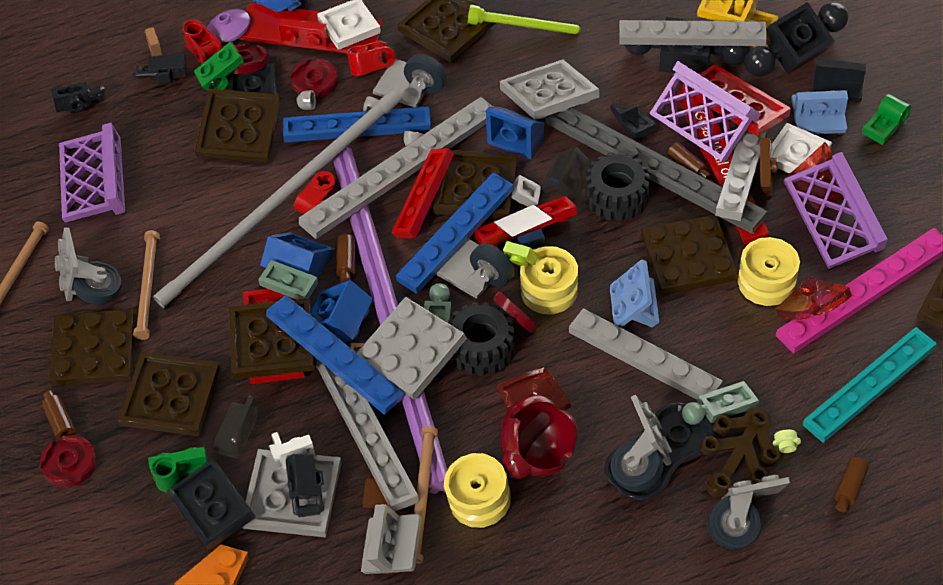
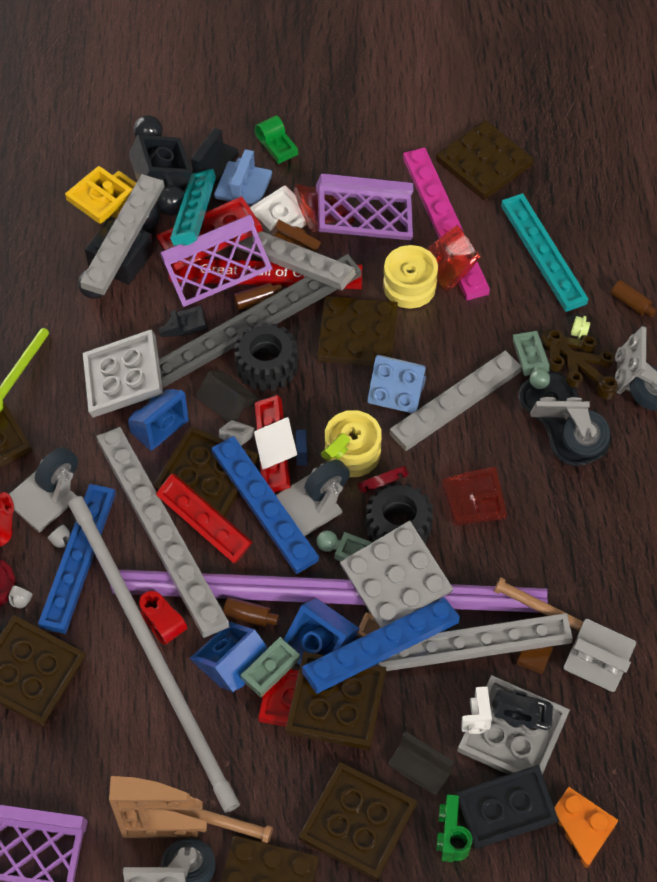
camera: 75 degrees left, 5 degrees up
(123, 231) = (143, 809): none -> medium nougat wedge
(410, 136) = (123, 511): light grey hinge -> none
(477, 490) = (566, 567): light yellow wheel -> none
(536, 438) = (530, 504): dark red piece -> none
(750, 72) = (193, 208): none -> teal plate

